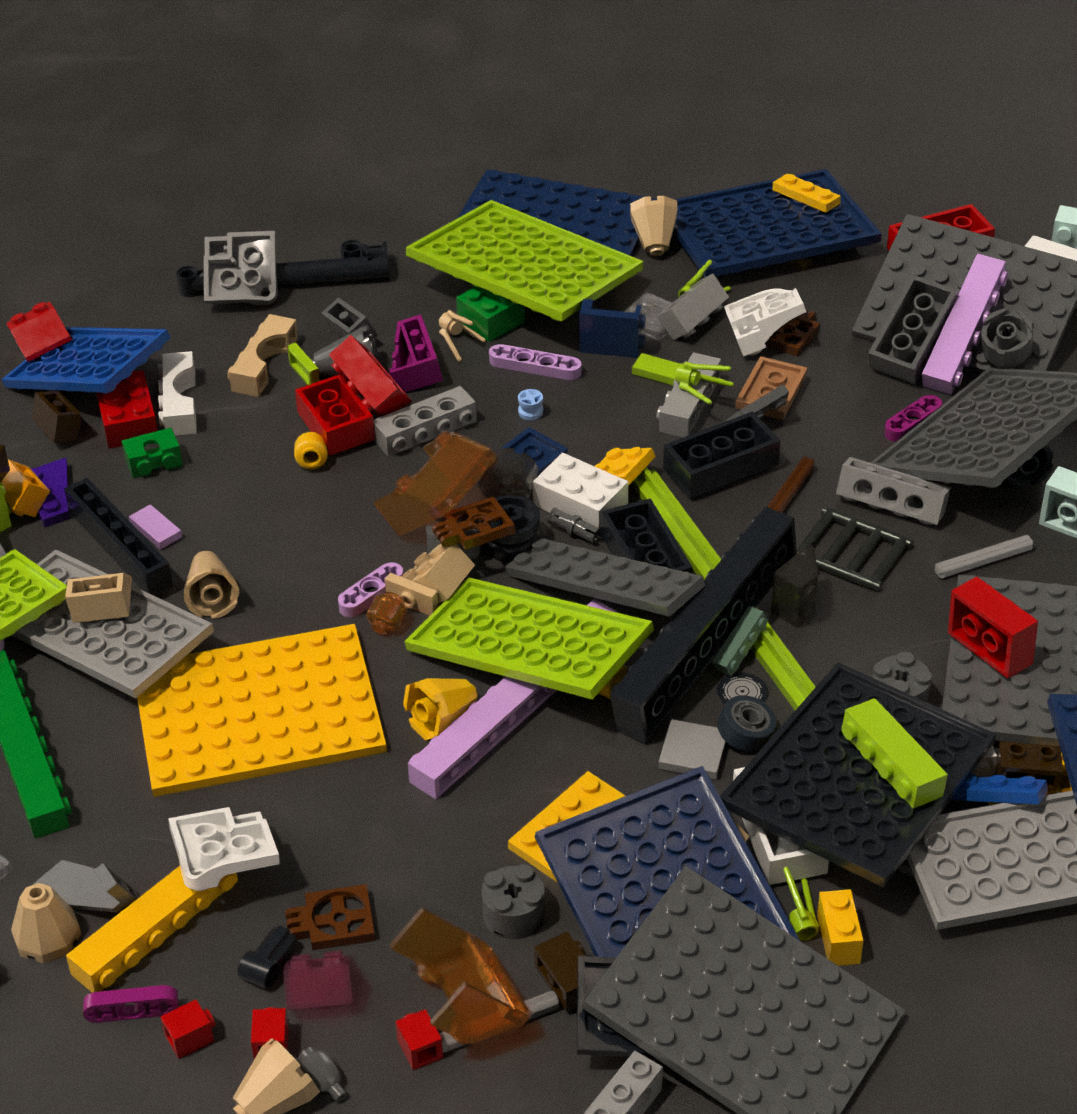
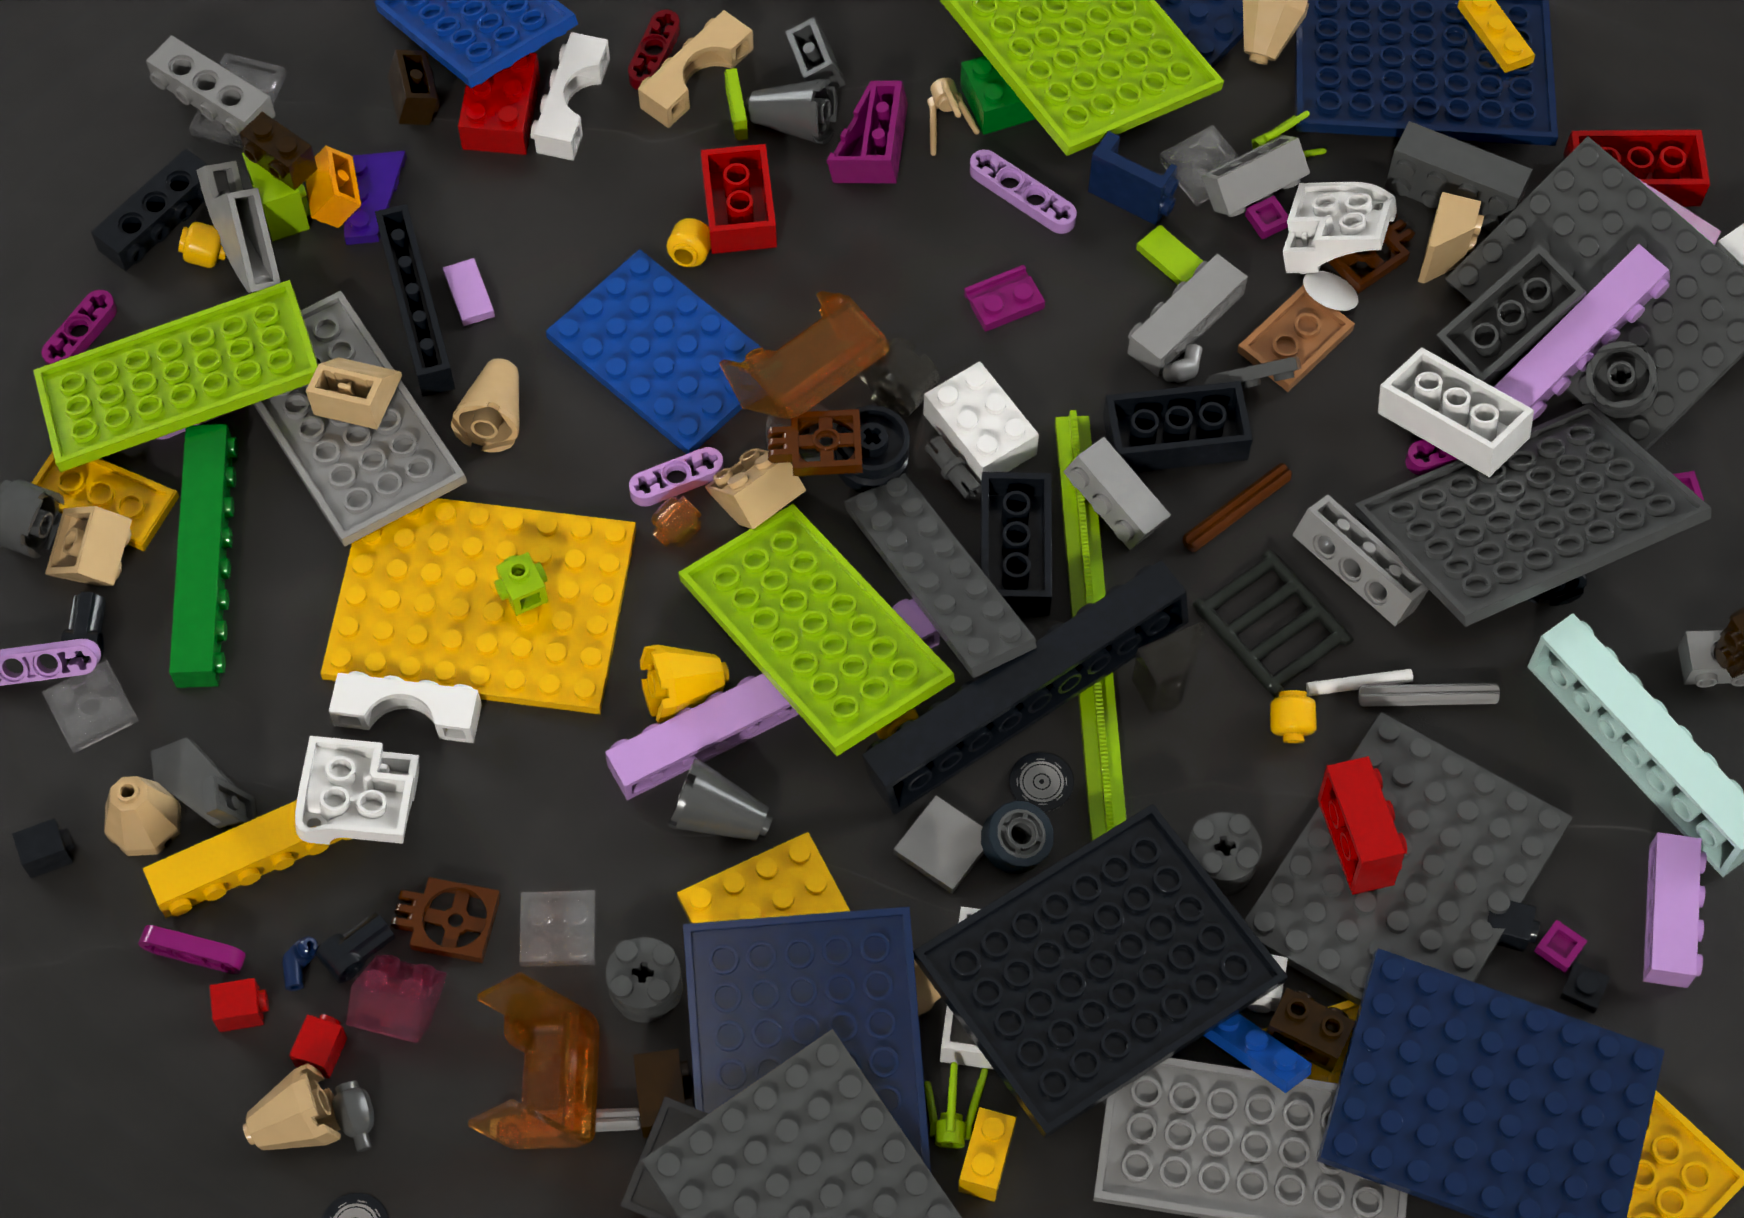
camera: 20 degrees right, 20 degrees up
(142, 462) = (493, 170): green brick -> none
(222, 348) = (653, 37): none -> dark red beam
(222, 983) = (296, 960): none -> dark blue arm
(265, 779) = (363, 699): none -> white arch
(290, 676) = (521, 583): none -> lime brick
(316, 521) = (656, 350): none -> blue plate
(368, 378) = (794, 165): red brick -> none
(414, 594) = (716, 505): tan plate -> none
(419, 1039) = (465, 1103): red brick -> none
(424, 420) = (857, 231): light grey brick -> none
(426, 887) = (557, 928): none -> clear plate
(511, 772) = (718, 806): none -> dark grey cone
(530, 404) = (990, 254): light blue wheel -> none
(538, 447) = (952, 338): dark blue plate -> none
(557, 421) = (1004, 298): none -> magenta plate
(626, 462) = (1050, 400): yellow plate -> none
(688, 375) = (1190, 296): lime plant -> none
(702, 500) = (1116, 493): none -> light grey brick
(706, 421) = (1185, 368): none -> light grey arm
(713, 330) = (1267, 217): none -> magenta plate
(740, 641) = (1064, 718): sand green piece -> none
(779, 356) = (1330, 290): none -> white sticker
(829, 270) = (1434, 163): none -> dark grey brick
(843, 301) = (1451, 235): none -> tan slope
(894, 753) = (1141, 968): lime brick -> none
(900, 593) = (1293, 716): none -> yellow head
(906, 389) = (1455, 411): none -> white brick
(929, 565) = (1355, 682): none -> white bar

